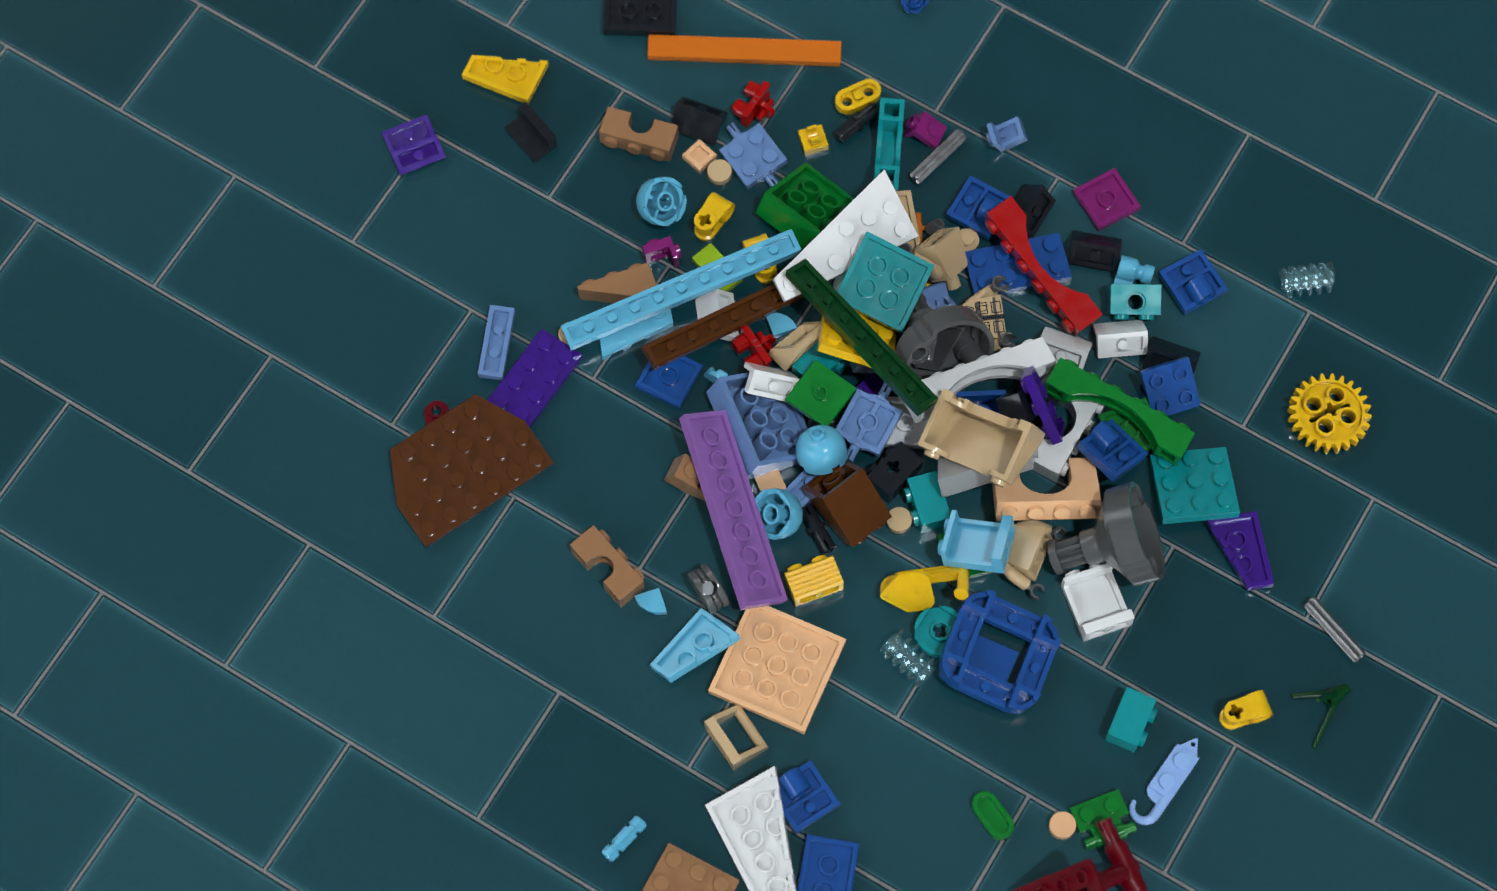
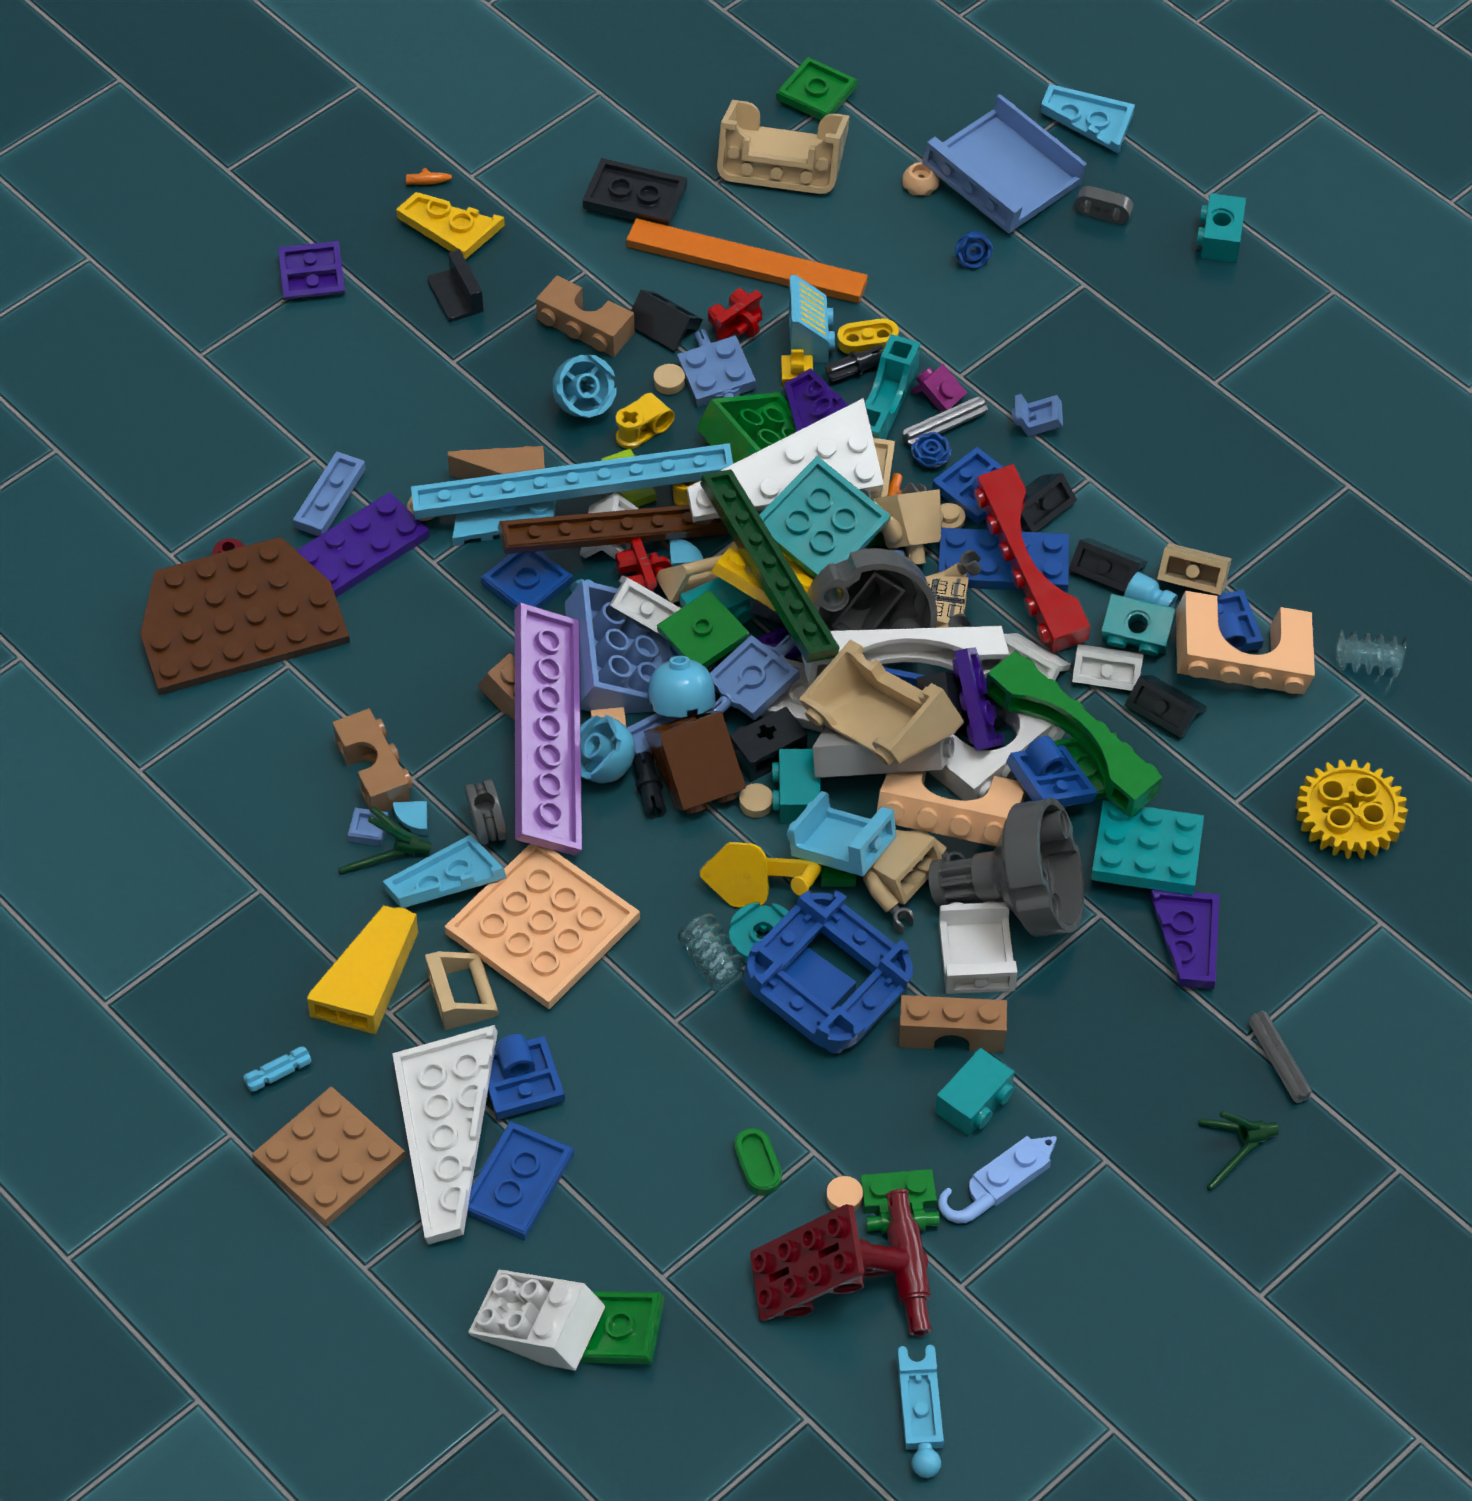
camera: 15 degrees right, 15 degrees down
(474, 36) = (427, 178): none -> orange helmet
(621, 619) = (364, 832): none -> medium blue tile
(653, 628) = (404, 842): none -> dark green plant
(660, 249) = (565, 442): magenta bracket -> none
(662, 750) = (366, 974): none -> yellow slope
(699, 156) = (650, 357): light nougat tile -> none
(811, 98) = (810, 320): none -> medium azure slope
(813, 580) = (623, 838): yellow brick -> none
(840, 173) = (811, 399): none -> dark purple wing
(939, 179) = (931, 450): none -> blue plate
(1106, 199) = (1142, 514): magenta tile -> none
(1113, 665) = (929, 1018): none -> medium nougat arch
(1161, 241) = (1194, 568): none -> tan brick
(1170, 386) = (1153, 728): blue plate -> none
(1192, 315) = (1208, 655): none -> light nougat arch
(1250, 709) = (1132, 1117): yellow piece -> none

